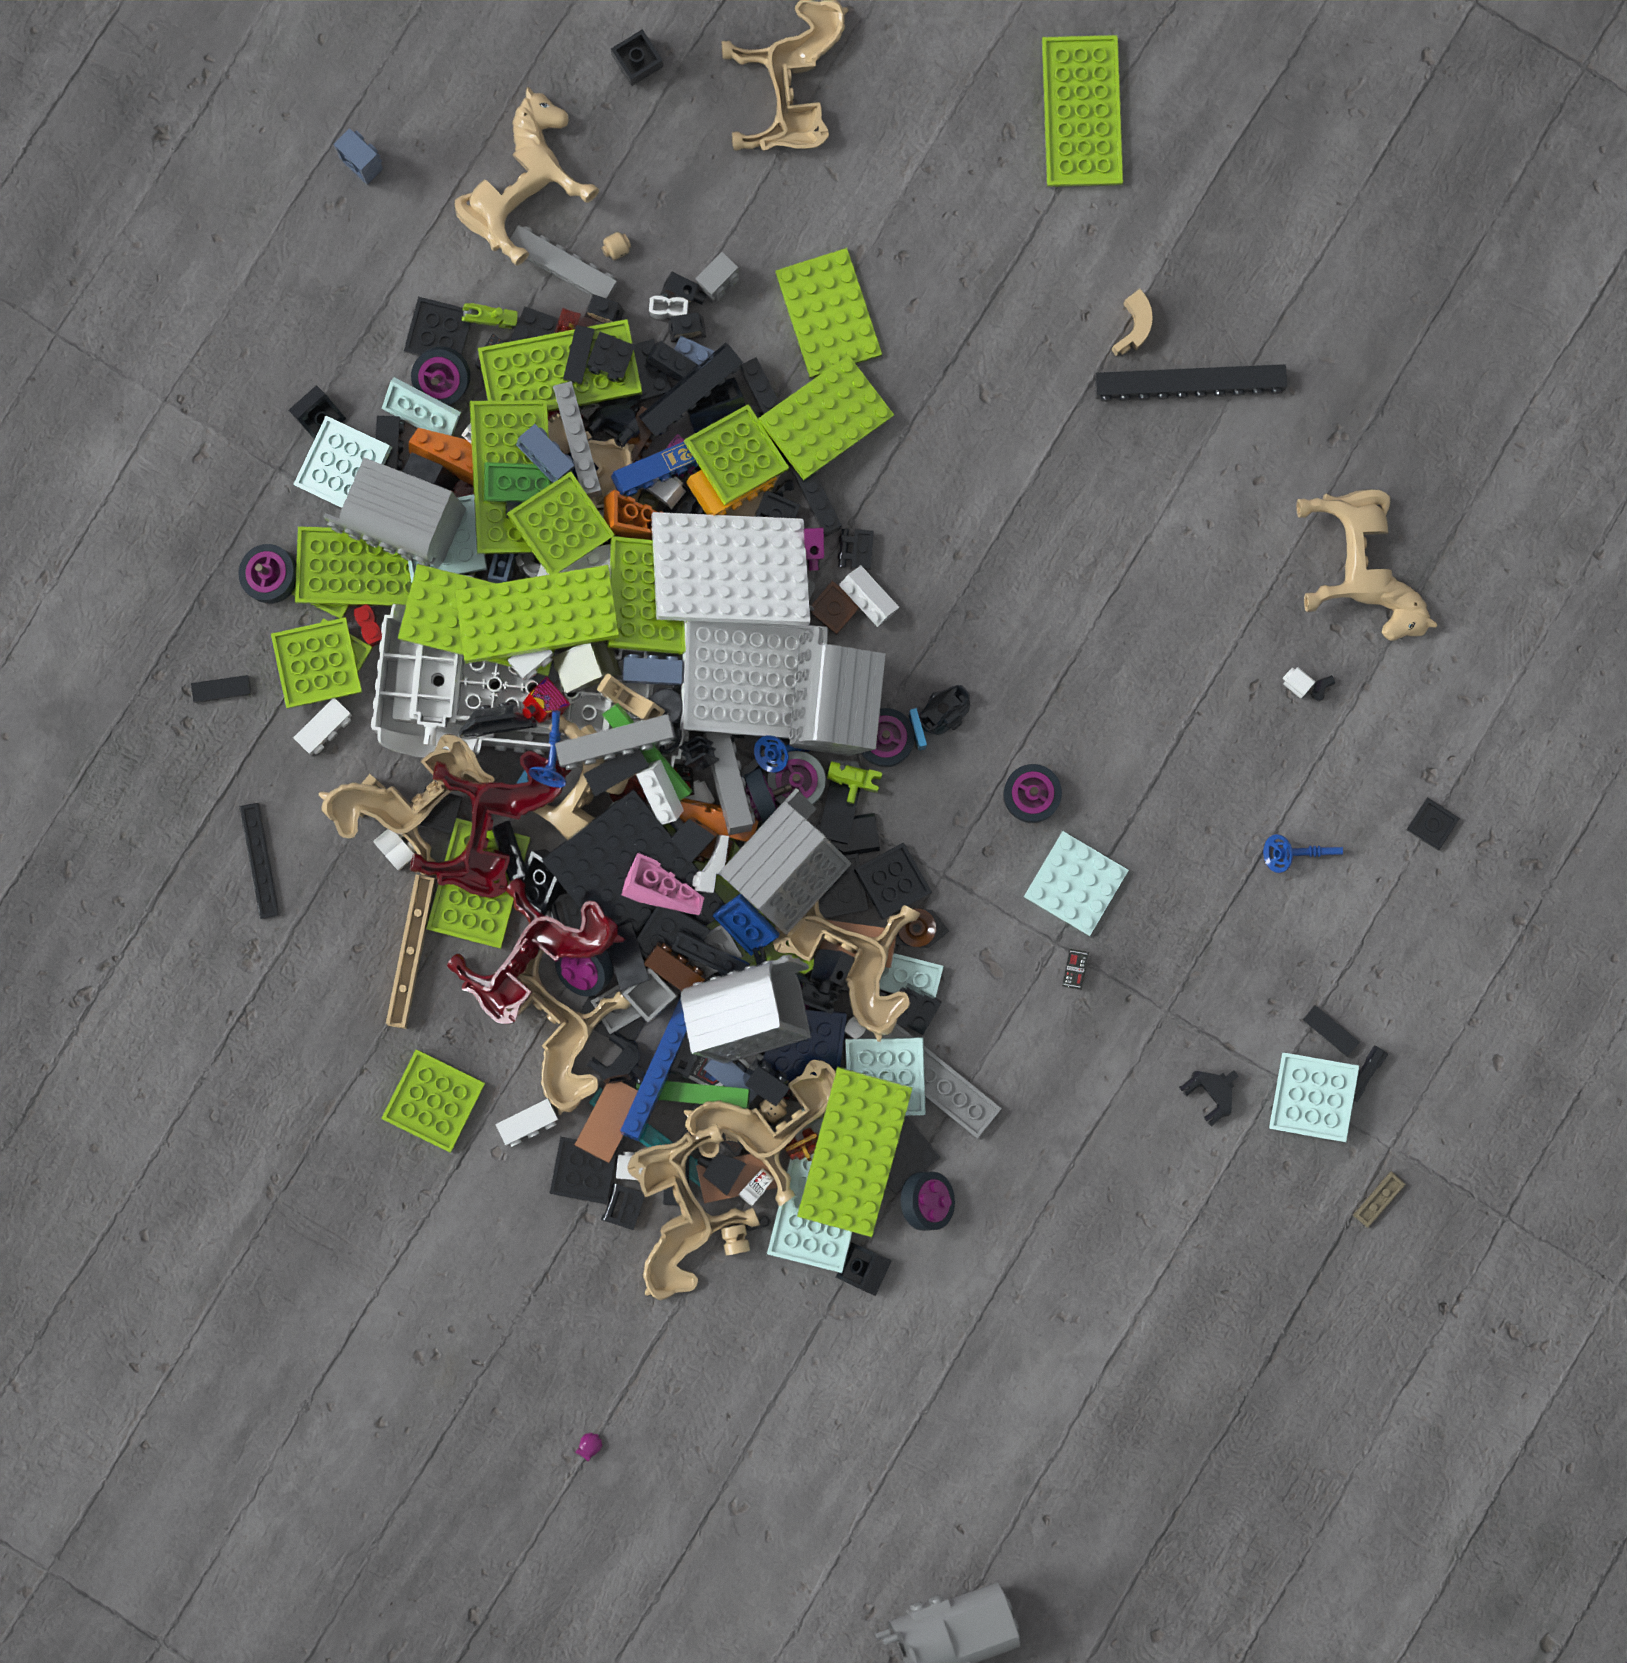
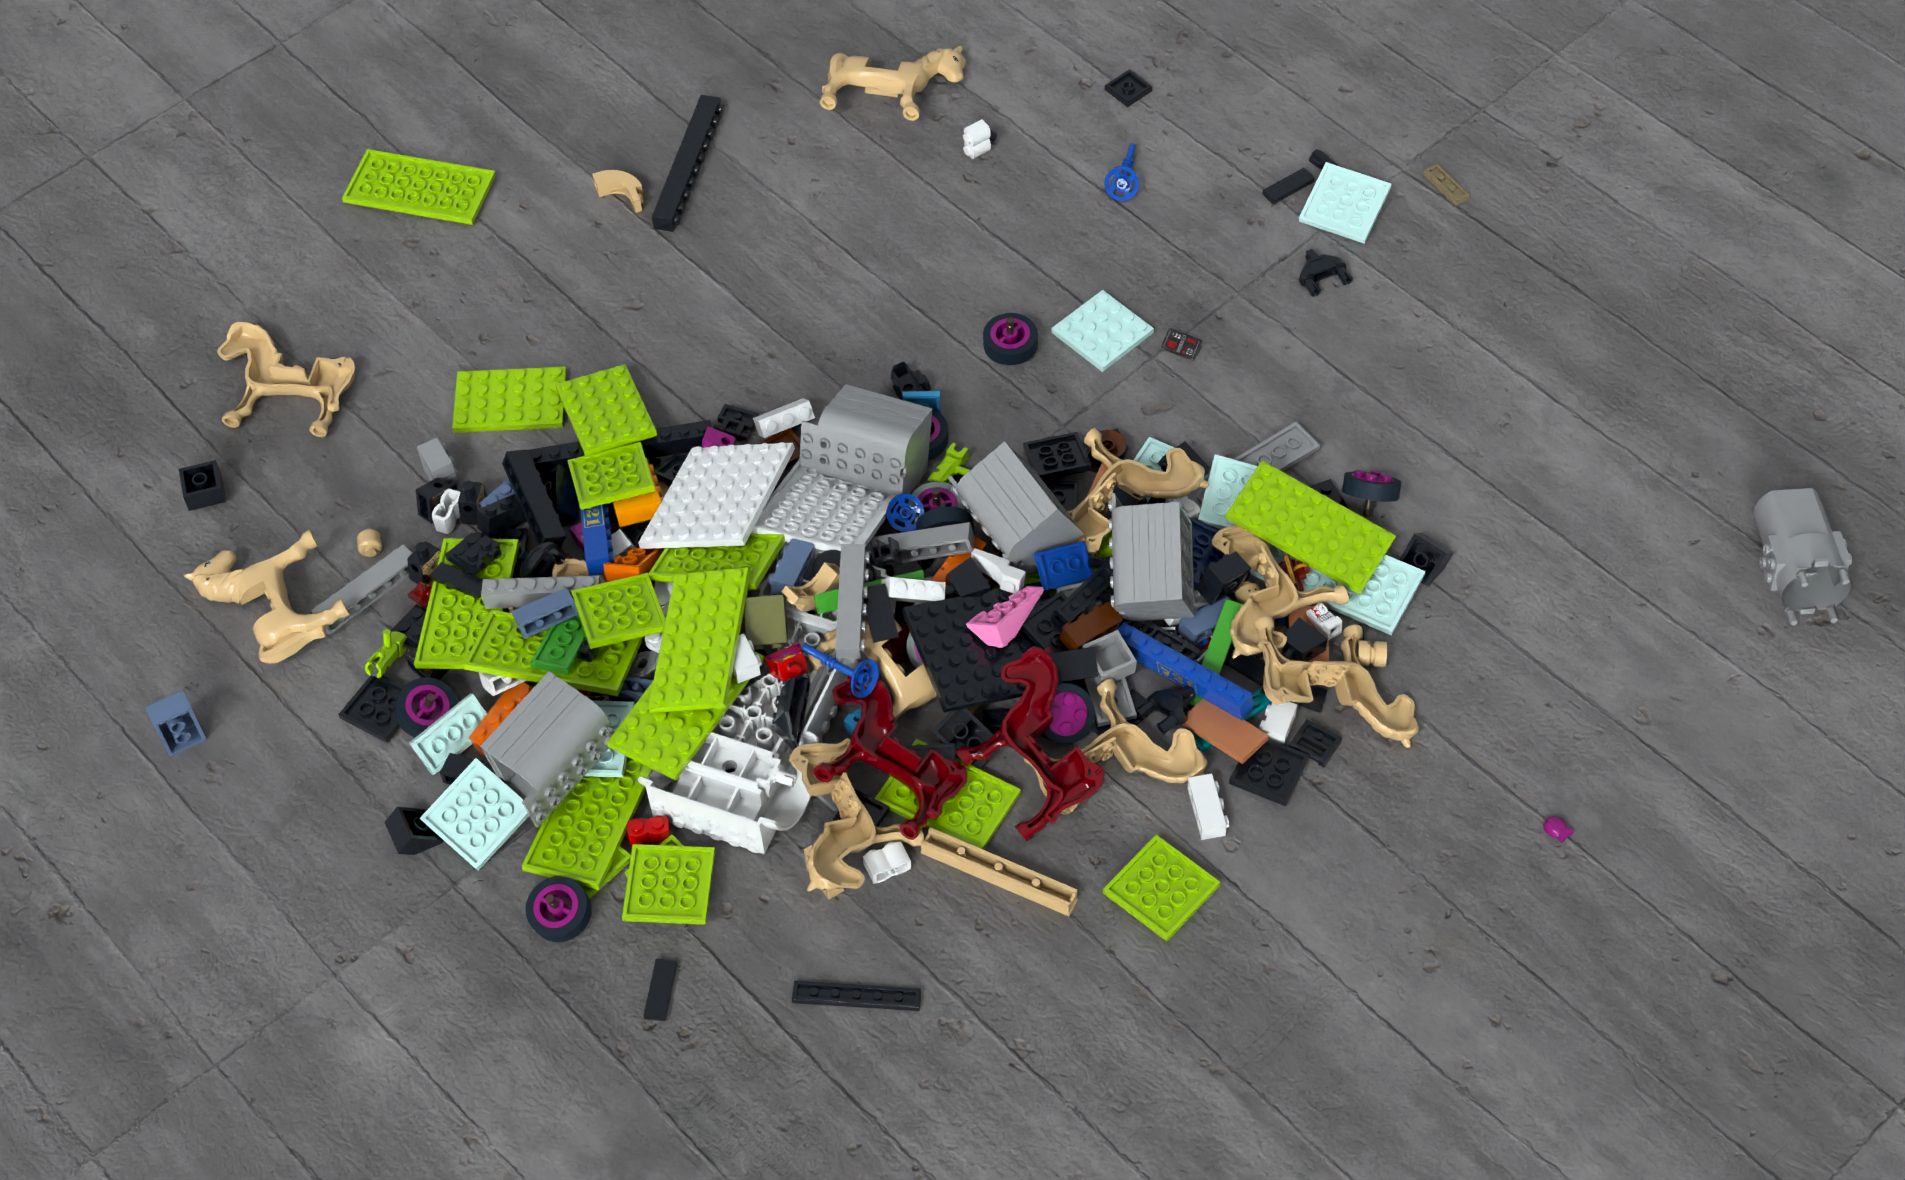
camera: 70 degrees left, 30 degrees down
(323, 727) = (737, 899): white brick -> none

